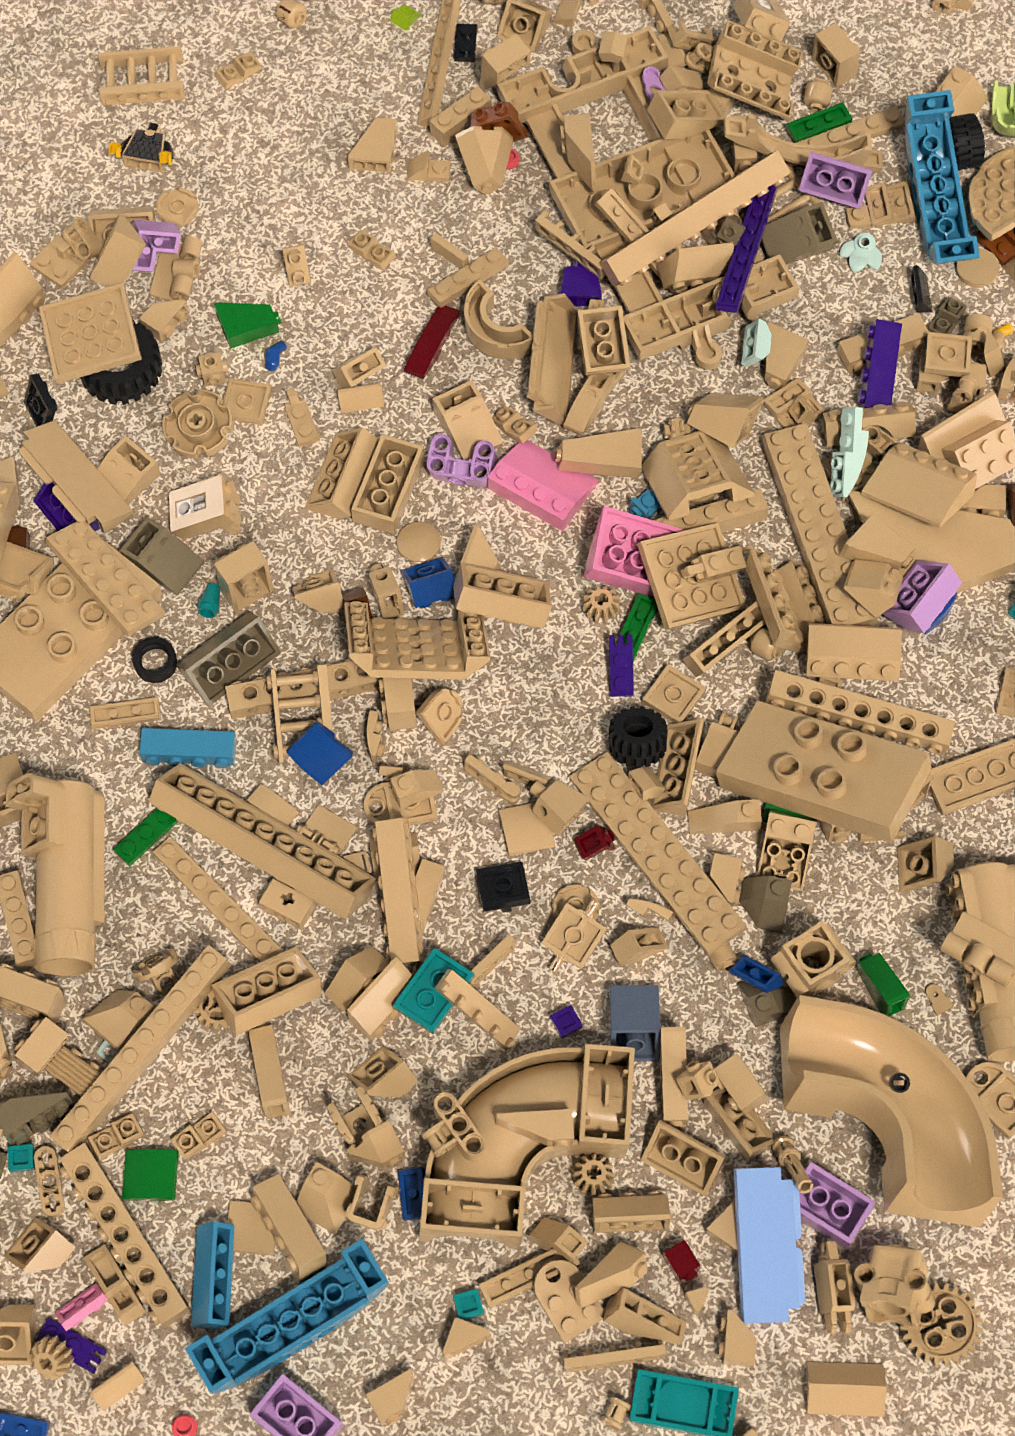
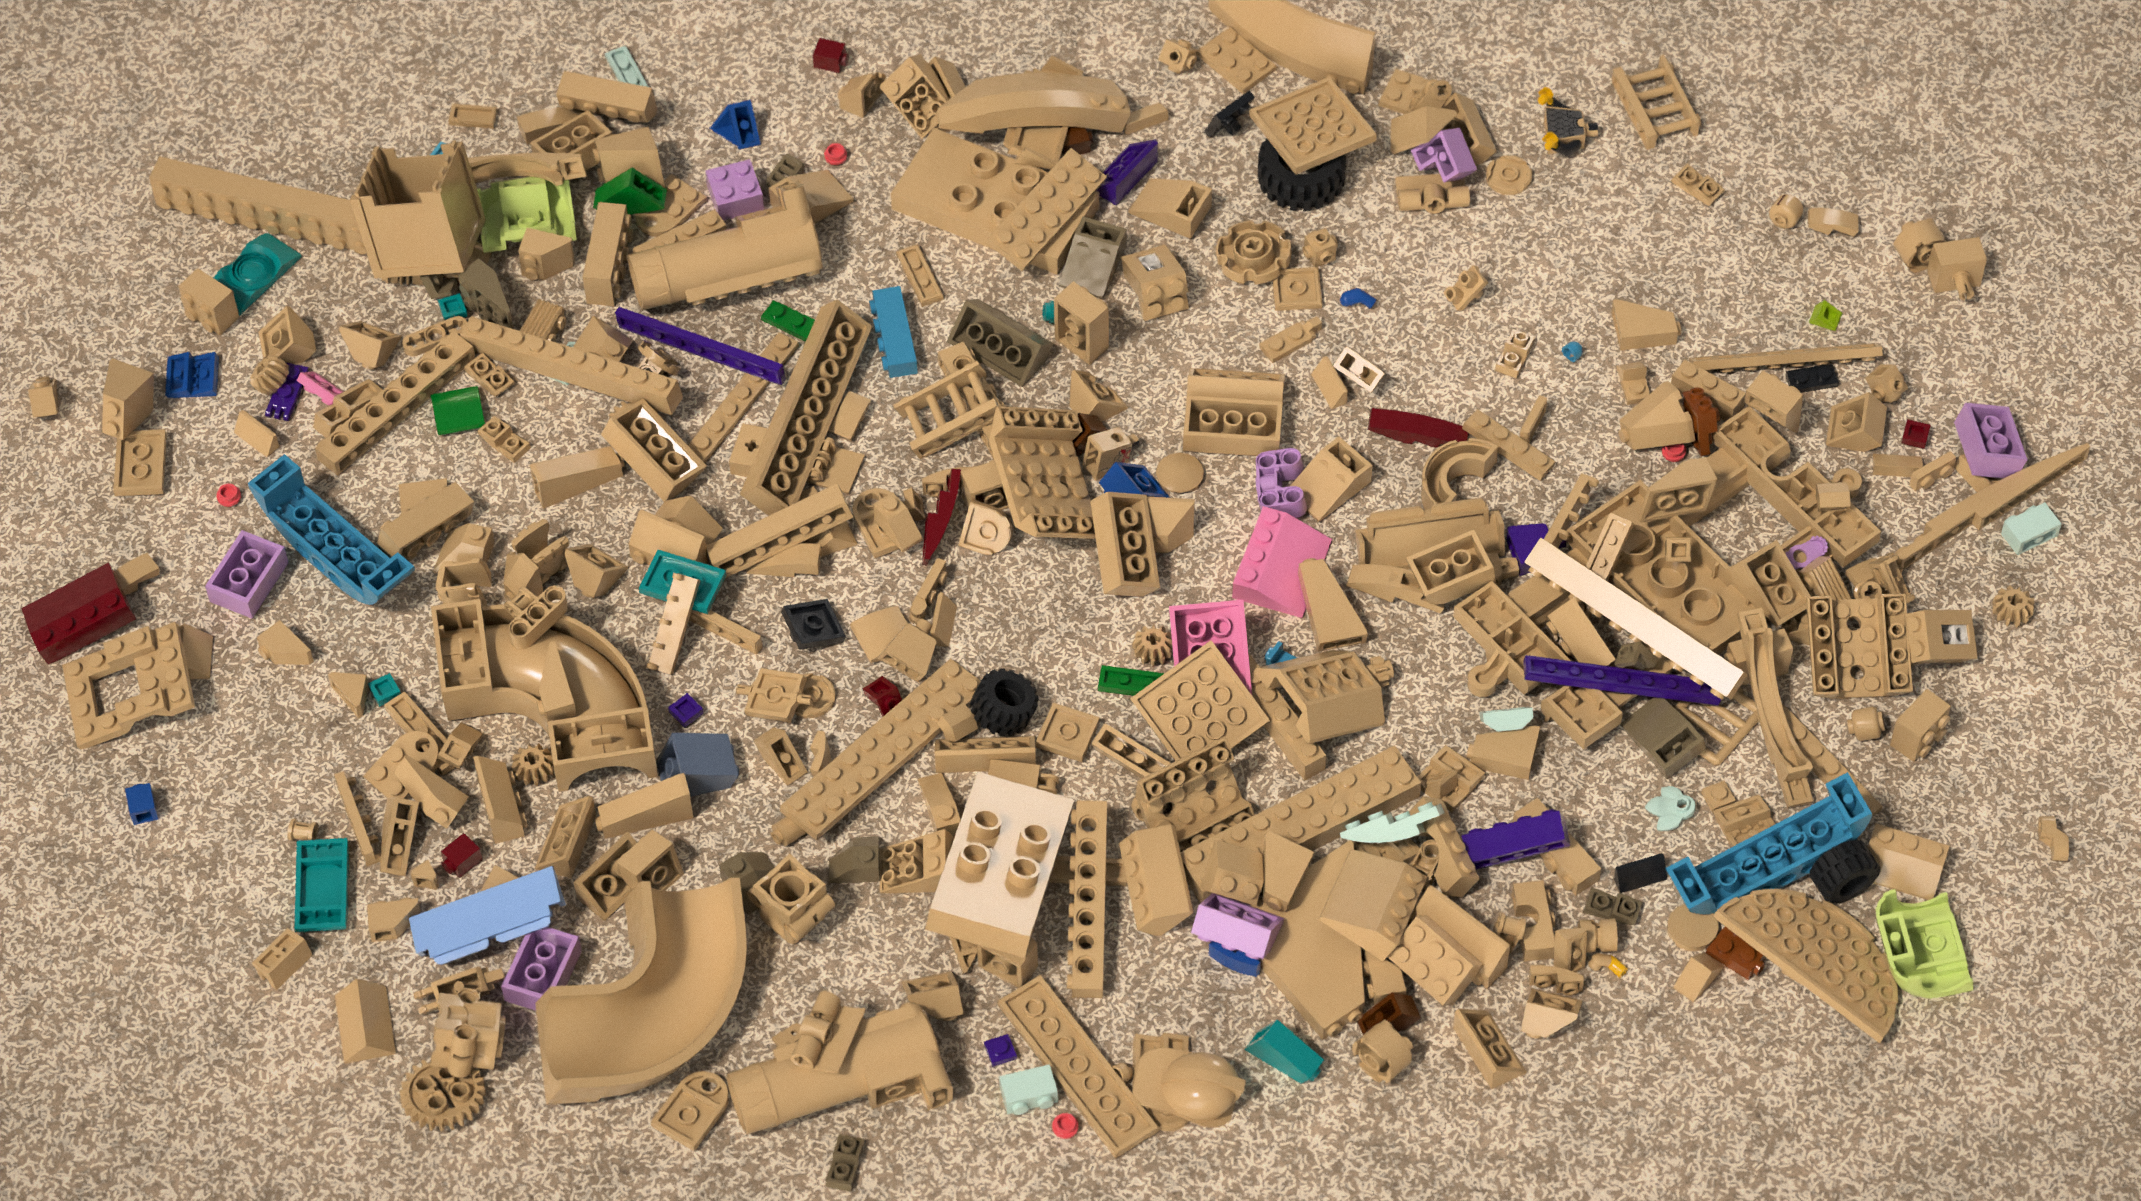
camera: 75 degrees right, 10 degrees down
(41, 1046) = (556, 286): tan slope -> none
(75, 478) = (1152, 159): tan slope -> none
(151, 925) = (700, 346): none -> dark purple tile
(159, 675) = (981, 268): black tyre -> none
(164, 316) = (1367, 193): tan slope -> none
(212, 1275) = (369, 477): dark azure brick -> none
(246, 322) = (1385, 263): green slope -> none
(319, 753) = (909, 432): blue slope -> none
(382, 203) = (1572, 348): none -> dark azure hinge
(426, 753) = (937, 522): none -> dark red slope
(513, 425) = (1343, 524): tan slope -> none
(621, 666) = (1085, 676): dark purple hinge -> none
(660, 214) = (1626, 583): tan piece -> none
(698, 1080) = (635, 807): tan brick -> none
(717, 564) = (1213, 721): tan hinge -> none
(725, 416) = (1403, 706): tan slope -> none
(725, 875) = (870, 816): tan slope -> none
(756, 974) = (768, 856): blue slope -> none
(801, 1180) = (581, 923): tan pin -> none
(819, 122) = (1830, 733): green plate -> none
(835, 180) = (1744, 753): lavender slope -> none
(882, 984) = (786, 975): green slope -> none
(899, 1088) = (670, 996): black hinge -> none
(948, 354) = (1550, 901): tan plate -> none
(988, 823) = (1000, 1050): none -> dark purple plate

